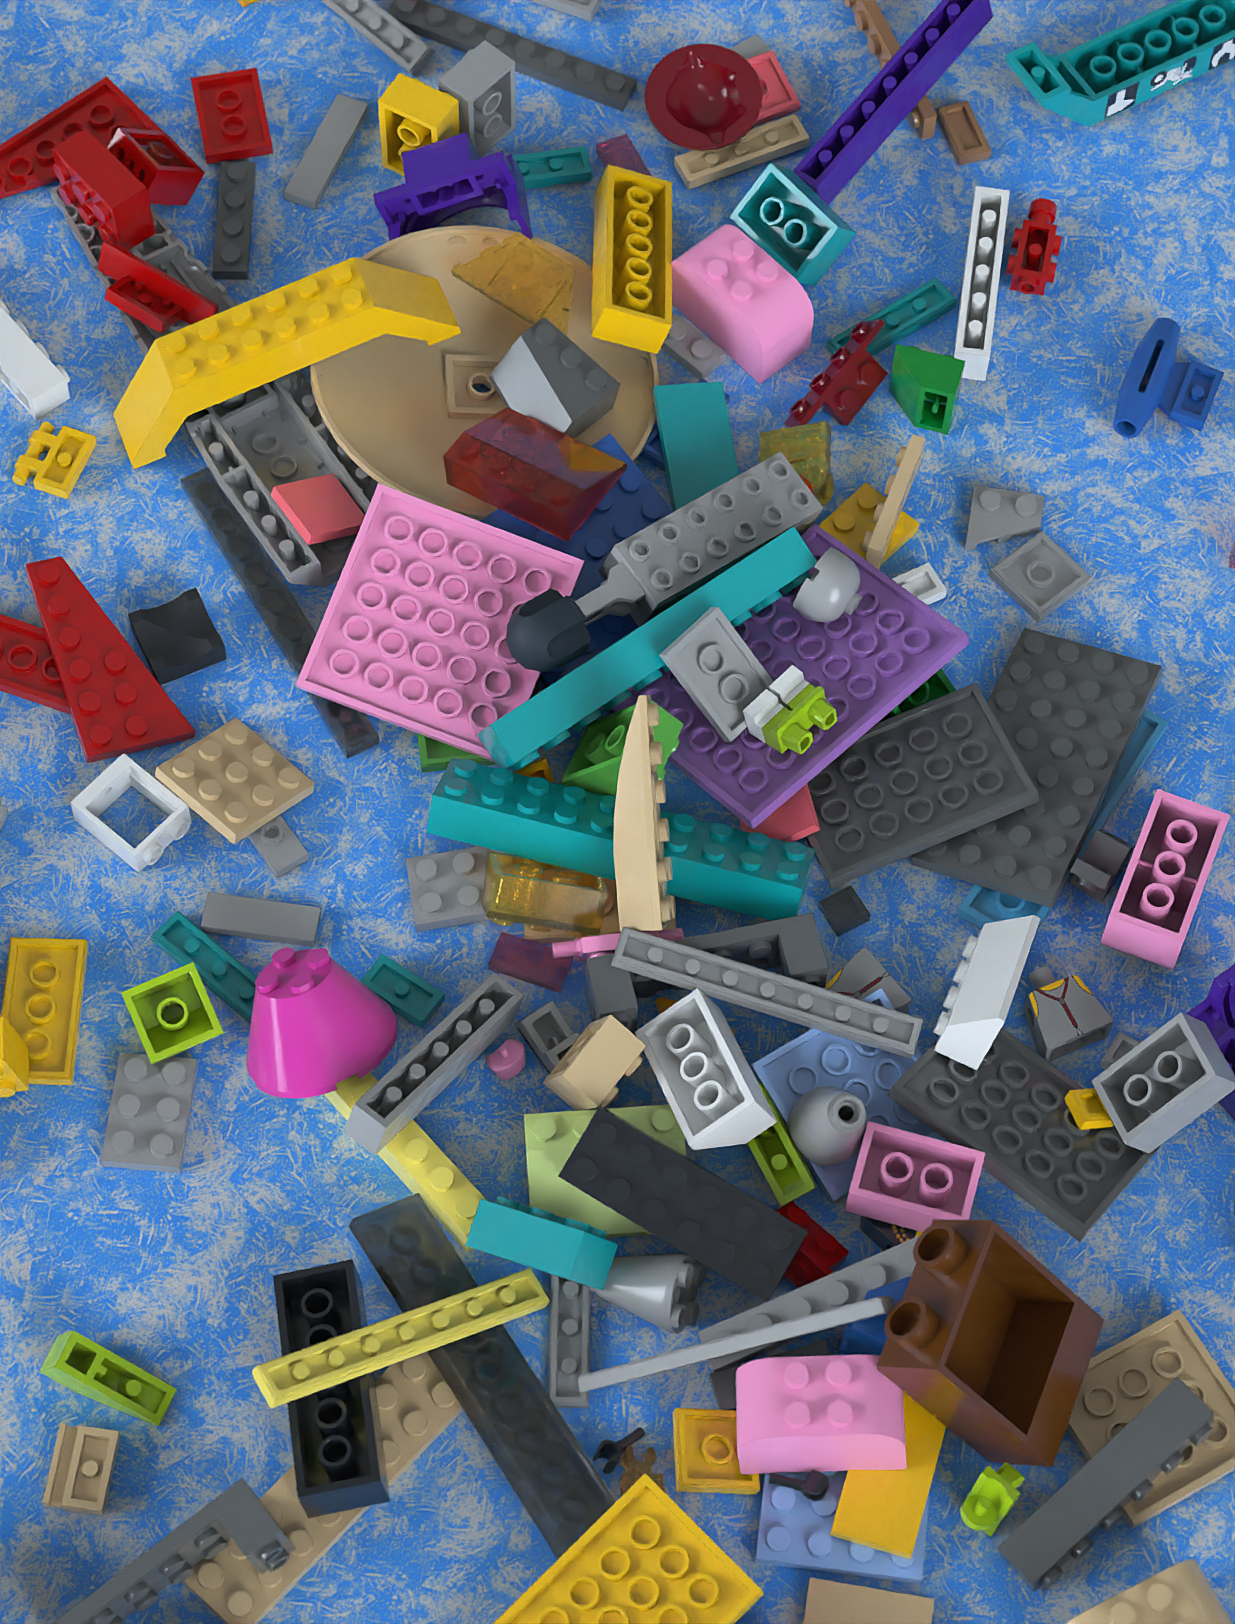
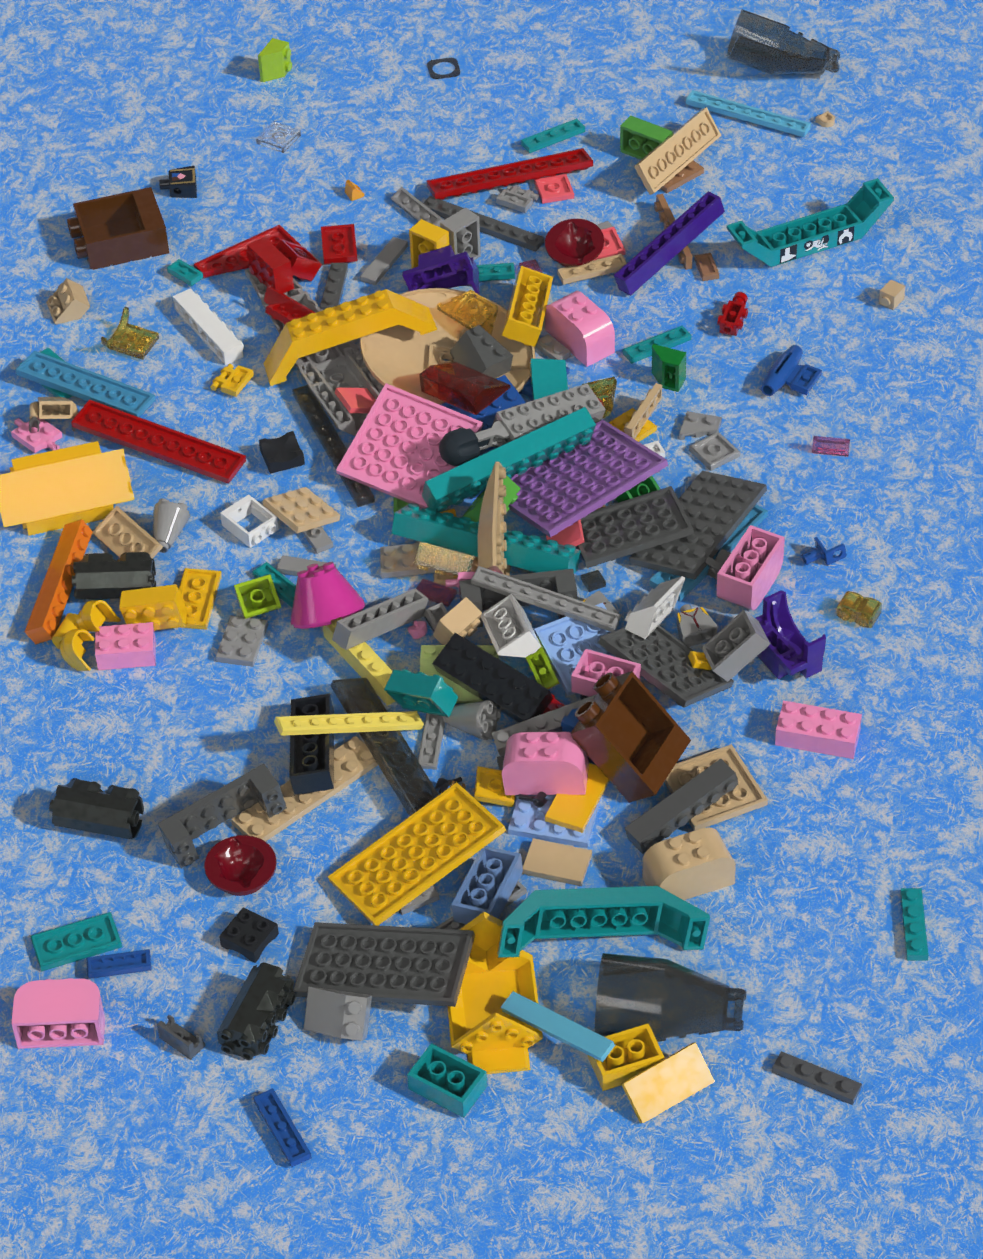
camera: 10 degrees right, 15 degrees down
(81, 1469) = (190, 774): tan plate -> none
(105, 683) = (241, 463): red wing -> none
(107, 1378) = (206, 739): lime slope -> none
(403, 990) = (370, 596): teal plate -> none
(717, 671) = (542, 468): light grey plate -> none
(736, 1343) = (504, 731): light grey tile -> none
(788, 711) = (573, 487): lime hips -> none
(792, 224) = (612, 296): teal brick -> none
(827, 1125) = (567, 652): light grey cone -> none
(830, 588) = (602, 438): light grey cylinder -> none
(845, 382) = (630, 365): dark red bracket -> none
(981, 281) = (703, 326): white brick -> none
(991, 1499) = (624, 809): lime hips -> none

